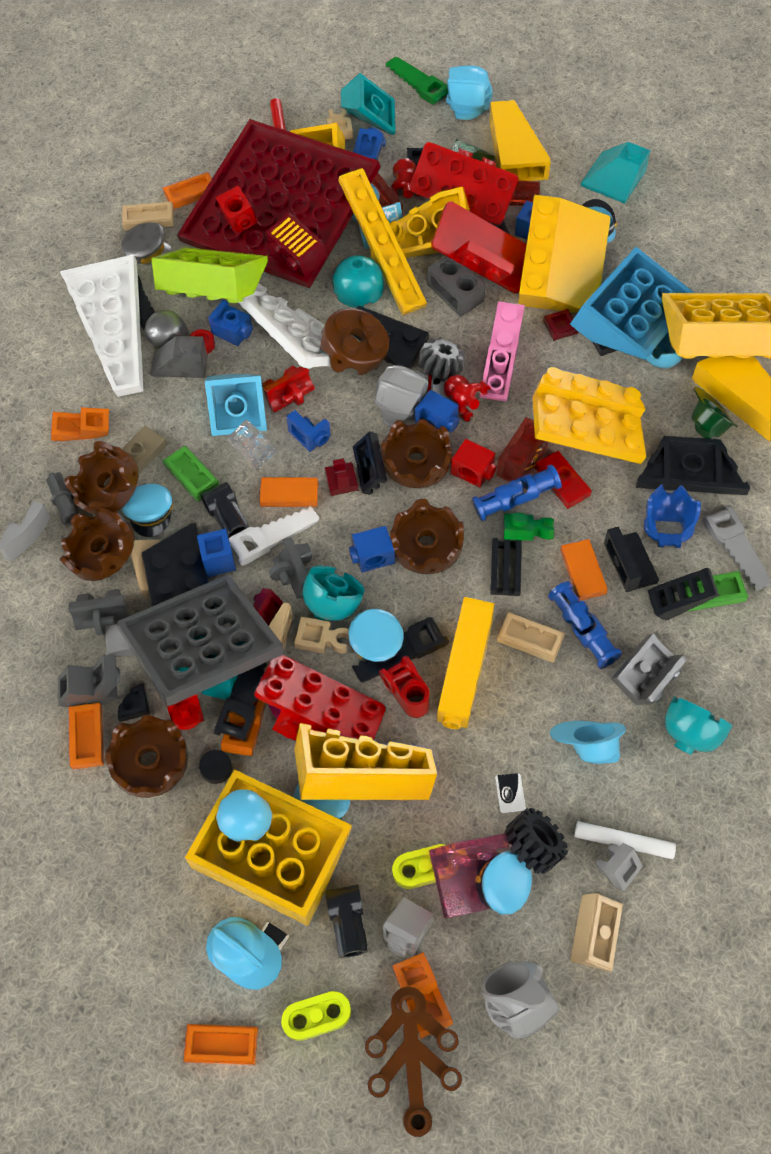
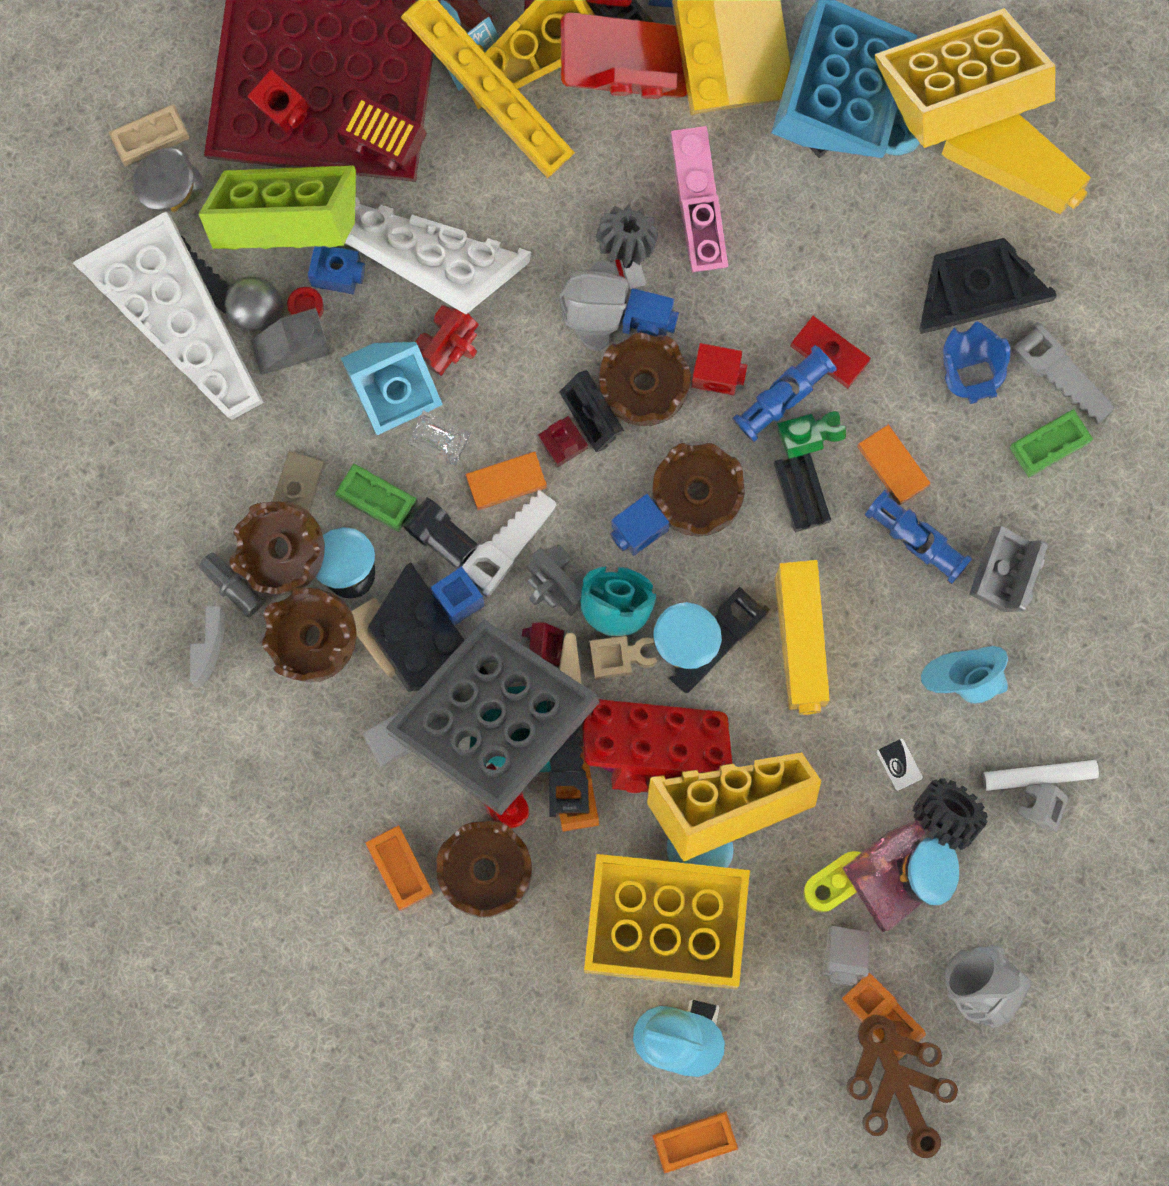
camera: 20 degrees left, 15 degrees up
(75, 426) = (204, 477): orange slope -> none
(89, 684) = (379, 809): dark grey brick -> none
(98, 612) = (349, 718): dark grey hips -> none
(134, 704) = (437, 811): black tile -> none
(187, 191) = (185, 73): orange tile -> none
(215, 766) = (563, 851): black tile -> none
(244, 816) = (631, 903): medium azure hair -> none
(306, 433) = (493, 394): blue bracket -> none
(315, 1012) = (783, 1078): neon yellow plate -> none
(345, 911) = (773, 961): black piece -> none
(347, 351) = (500, 268): reddish brown plate -> none
(358, 281) = (474, 149): teal cylinder -> none
(404, 339) = (543, 218): black wing -> none
(404, 682) = (741, 681): red piece -> none
(456, 285) = (597, 121): dark grey brick -> none
(463, 393) = (674, 277): red piece -> none
(521, 453) = (773, 334): clear red brick -> none
(530, 637) = (862, 573): tan plate -> none
(559, 324) = (754, 128): dark red tile -> none
(589, 415) = (838, 261): yellow plate -> none
(597, 932) = (1041, 885): tan slope -> none
(630, 559) = (944, 433): black panel -> none
(664, 599) = (1000, 476): black slope -> none
(694, 727) = (1079, 622): teal cylinder -> none
(710, 416) = (982, 205): dark green piece -> none

